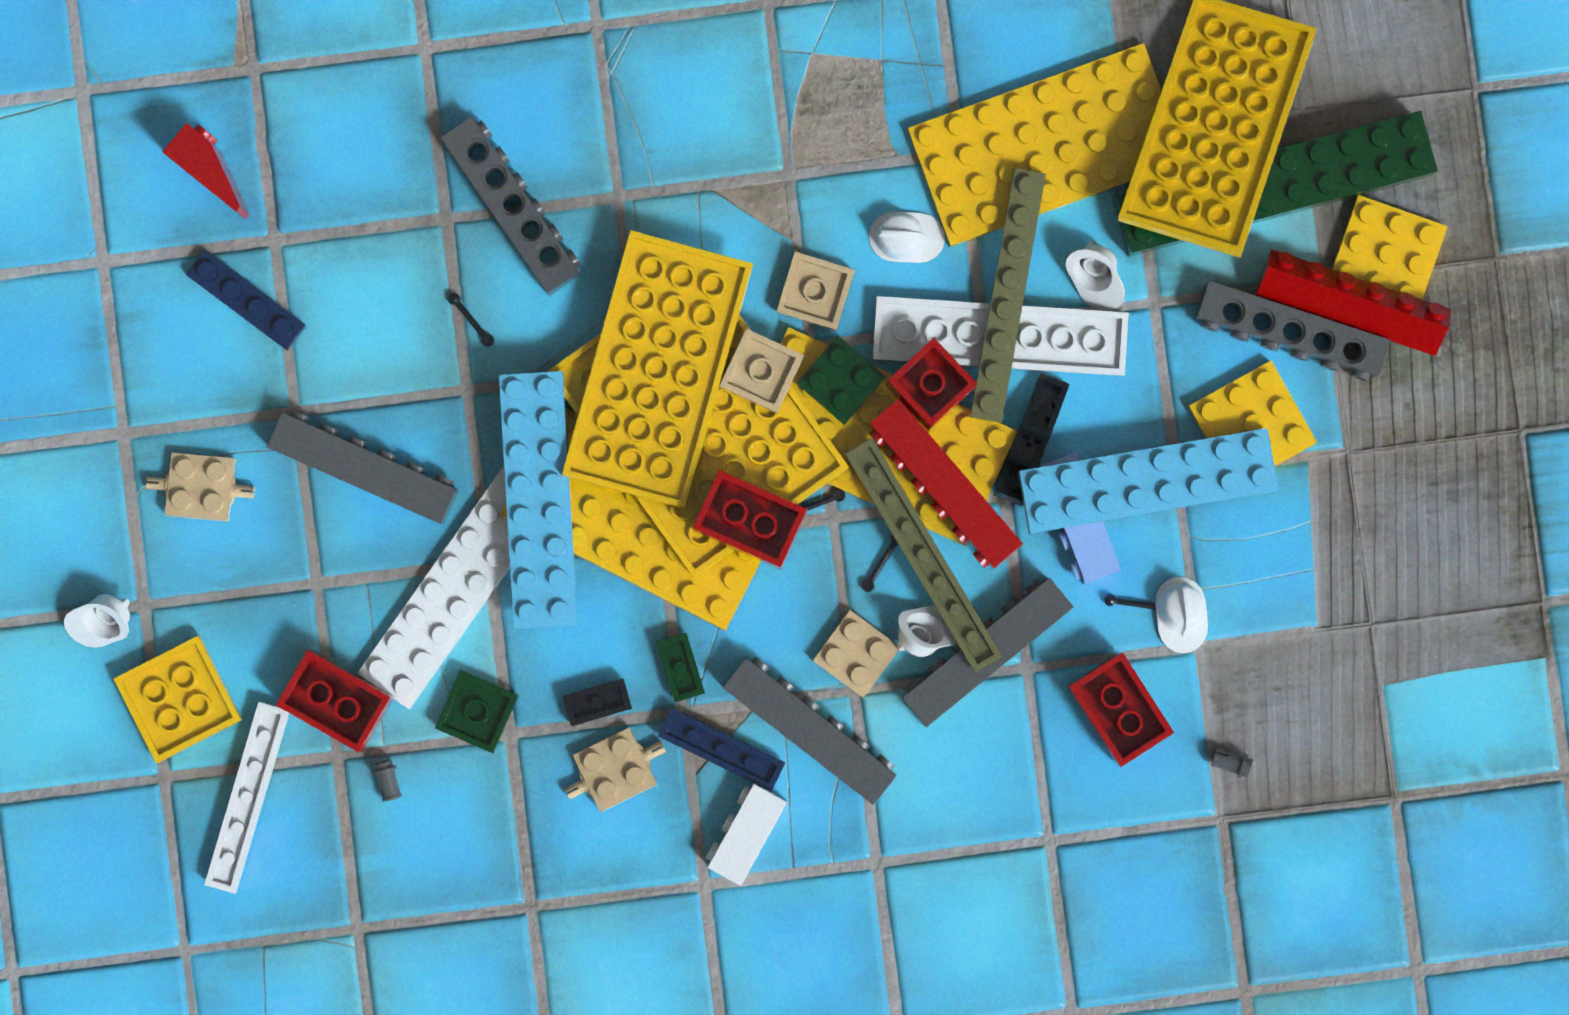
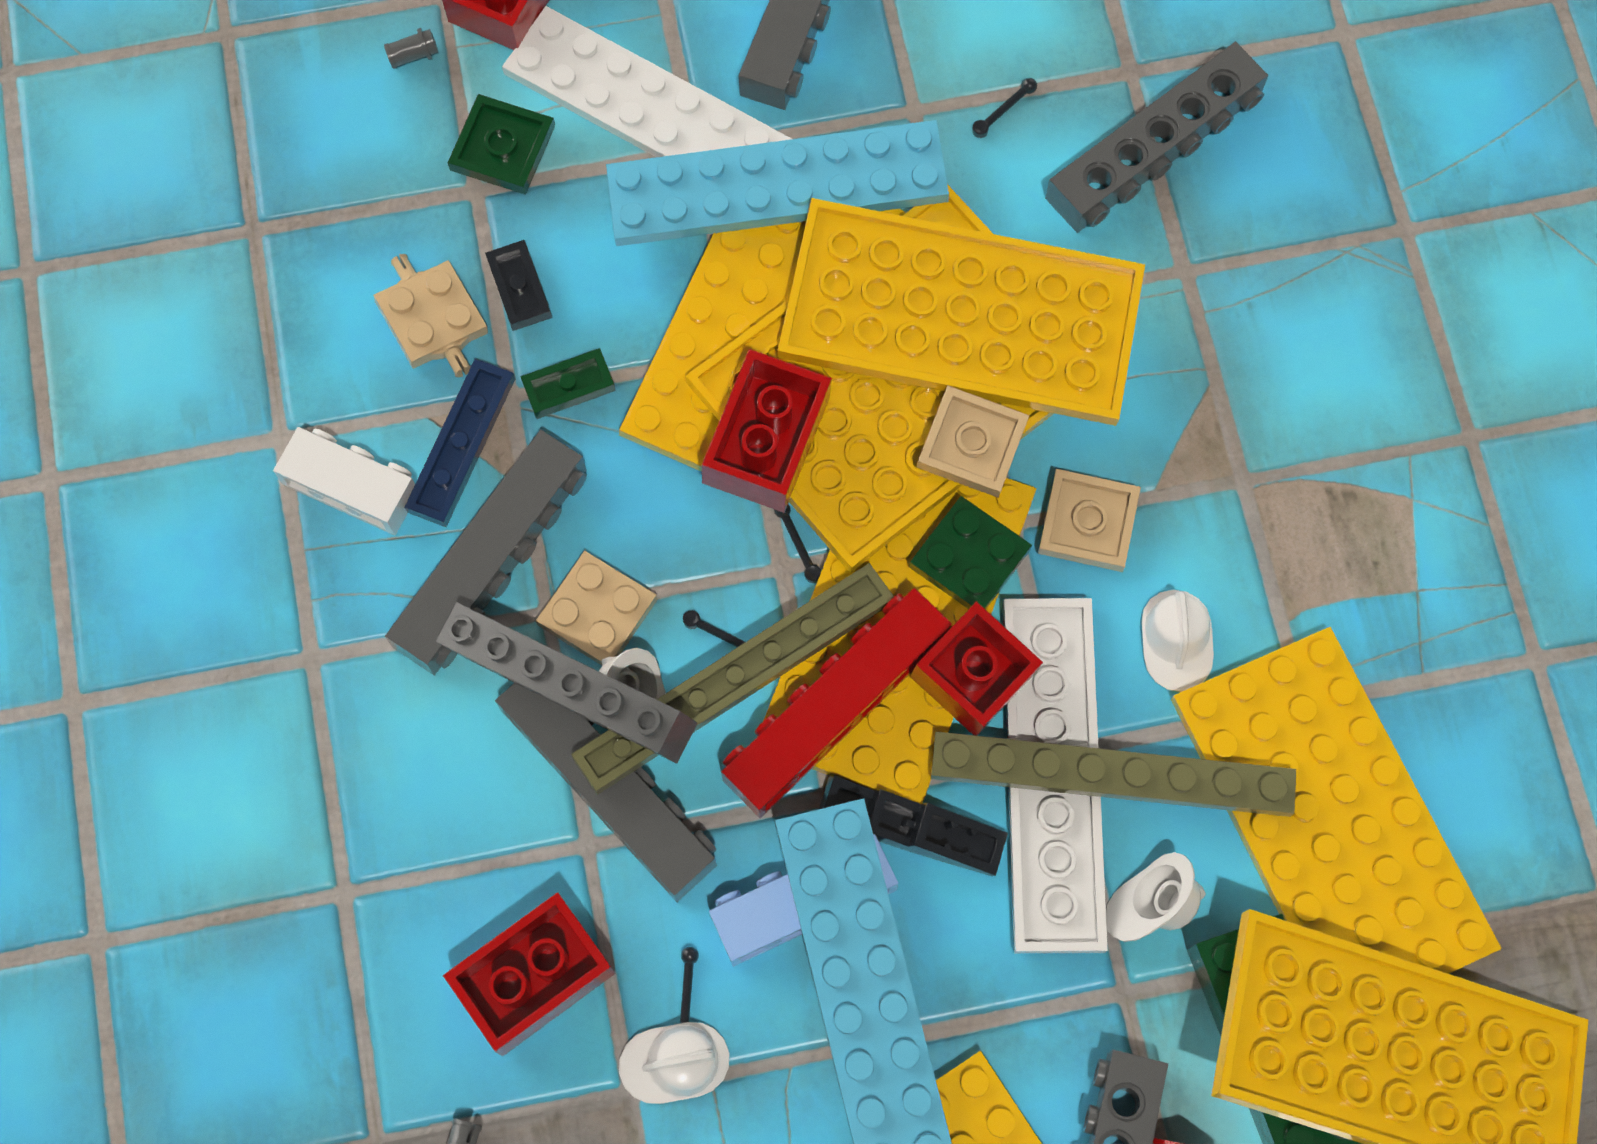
camera: 90 degrees right, 15 degrees down
(926, 673) = (567, 682): none -> dark grey brick

